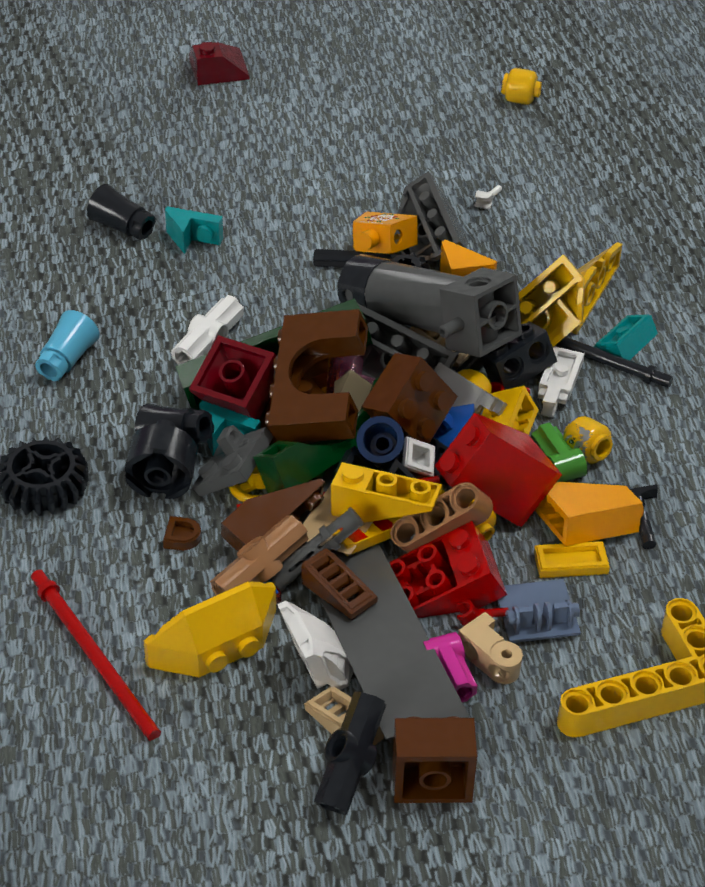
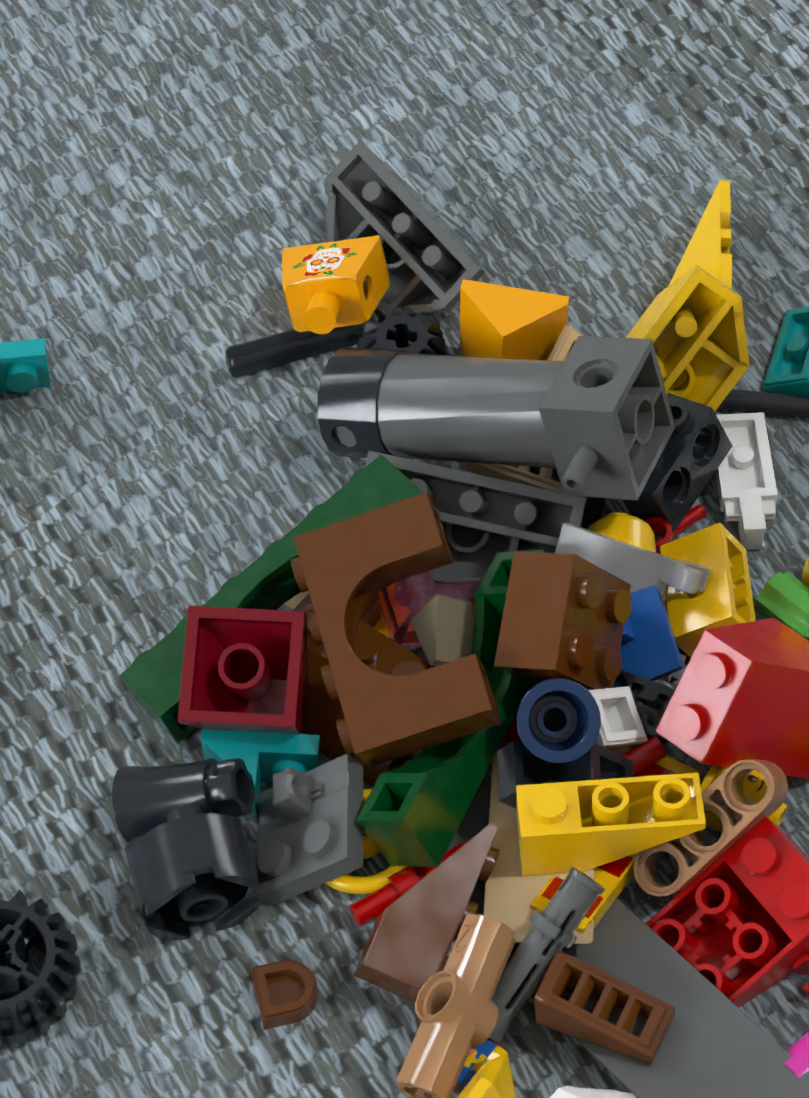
camera: 20 degrees left, 10 degrees up
(205, 329) = (129, 579): white piece -> none
(485, 199) = (452, 152): white hand -> none

